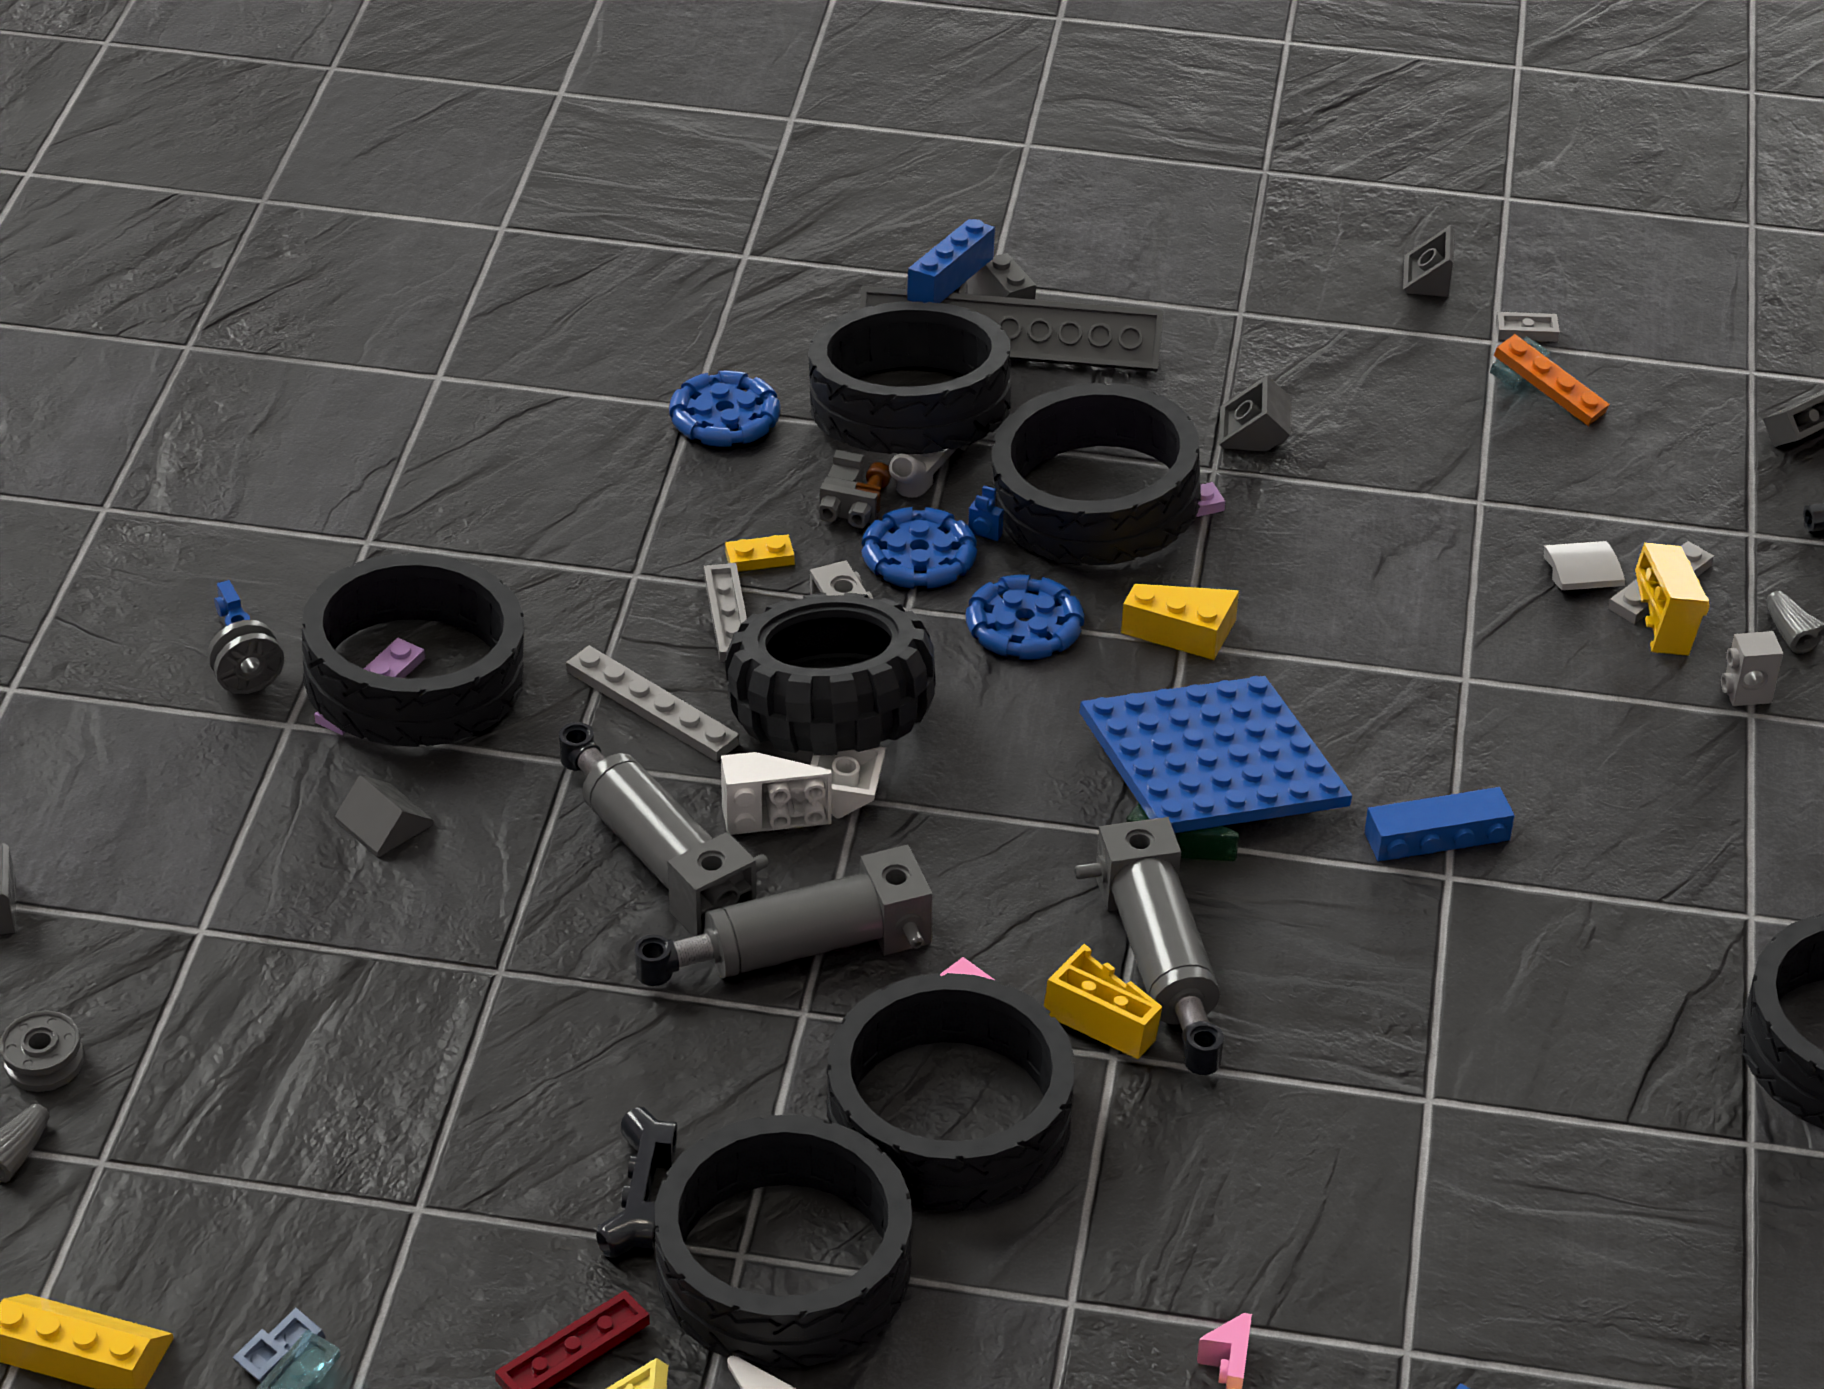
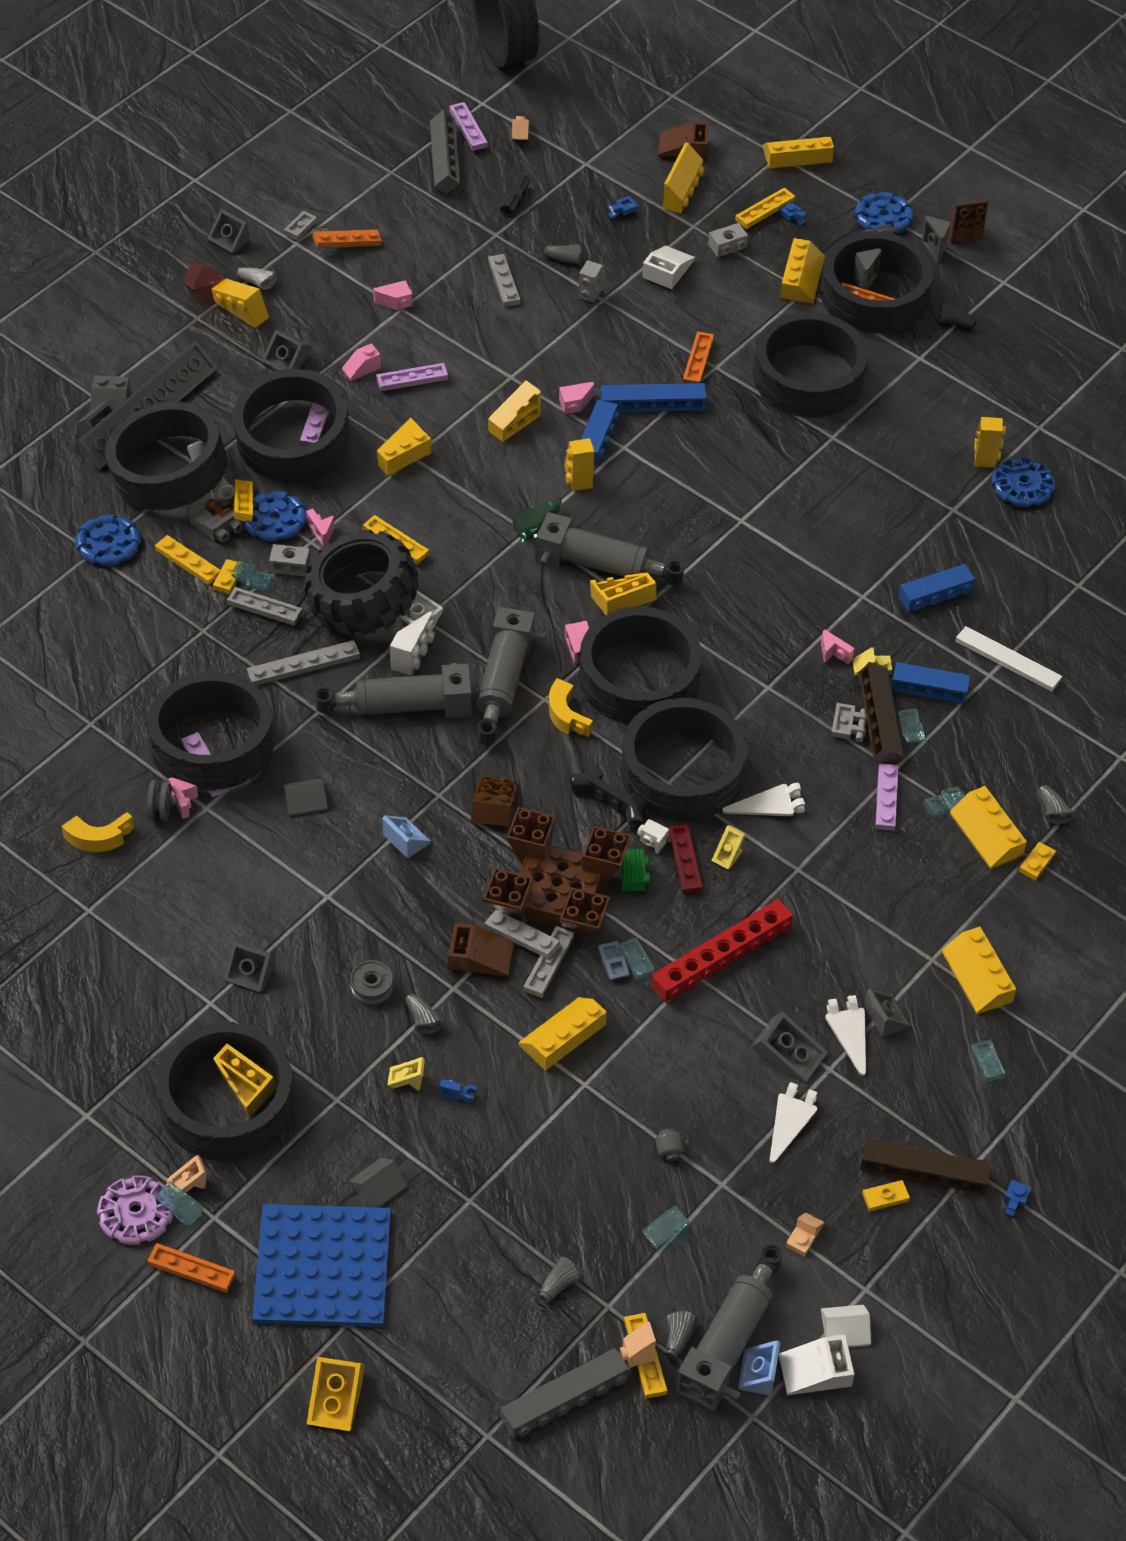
camera: 60 degrees left, 10 degrees up
(148, 641) = (97, 838): none -> yellow arch
(183, 1152) = (479, 951): none -> reddish brown slope
(221, 1257) = (546, 968): none -> light grey plate
(229, 604) = (106, 795): blue plate -> none
(255, 1195) = (522, 934): none -> light grey plate
(278, 682) = (182, 794): none -> bright pink slope
(376, 958) = (404, 835): none -> light blue slope
(386, 1189) = (554, 882): none -> reddish brown slope
(494, 1285) = (633, 871): none -> green brick
(523, 1038) = (494, 801): none -> reddish brown slope
(591, 1279) = (653, 835): none -> white brick
(757, 497) = (187, 559): none -> yellow plate
(775, 573) = (249, 576): none -> clear light blue slope
(787, 1031) = (562, 715): none -> yellow arch
(906, 493) = (243, 500): none -> yellow plate
(938, 600) = (321, 528): none -> bright pink slope
(951, 262) = (100, 397): blue brick -> none
(984, 517) = (279, 481): blue plate -> none
(986, 693) = (417, 551): none -> yellow plate
(1024, 638) = (353, 491): blue plate -> none
(1214, 754) = (502, 481): blue plate -> none
(1304, 331) = (242, 301): none -> yellow wedge
(1315, 270) = (201, 275): none -> clear red slope
(1318, 503) = (362, 362): none -> bright pink slope
(1326, 821) = (579, 464): none -> yellow wedge
(1343, 567) = (412, 377): none -> lavender plate
(1376, 707) = (515, 412): none -> yellow wedge
(1377, 331) = (262, 278): none -> light grey piece
(1488, 764) = (575, 397): none -> bright pink slope
(1492, 477) = (394, 295): none -> bright pink slope
(1584, 565) = (476, 298): light grey slope -> none
(1589, 862) = (655, 397): none -> blue brick
(1672, 596) = (527, 279): yellow wedge -> none
(1737, 880) = (698, 358): none -> orange plate

